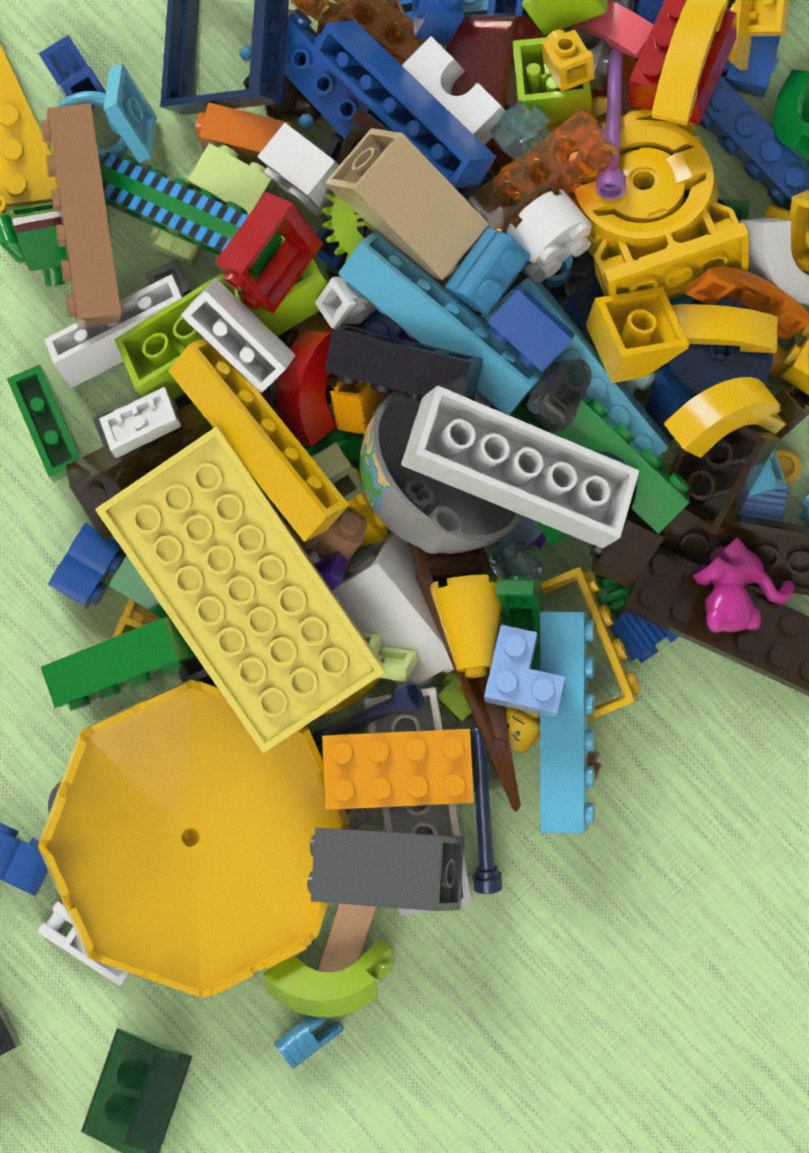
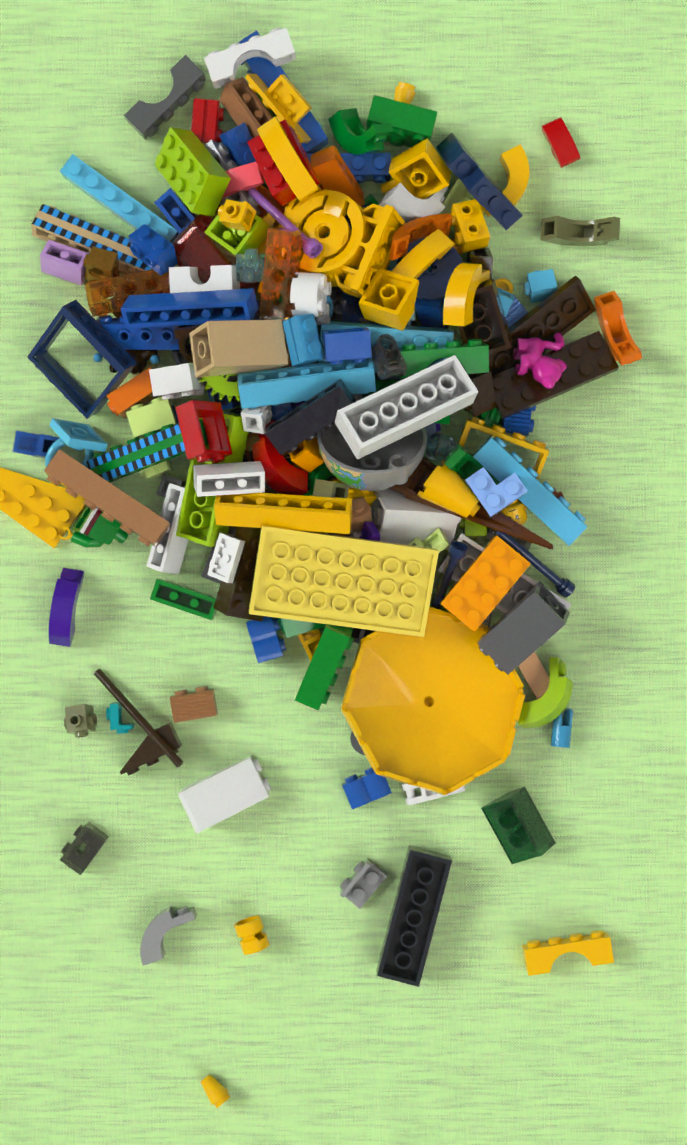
camera: 45 degrees left, 5 degrees up
(729, 138) = (335, 174): none -> orange brick

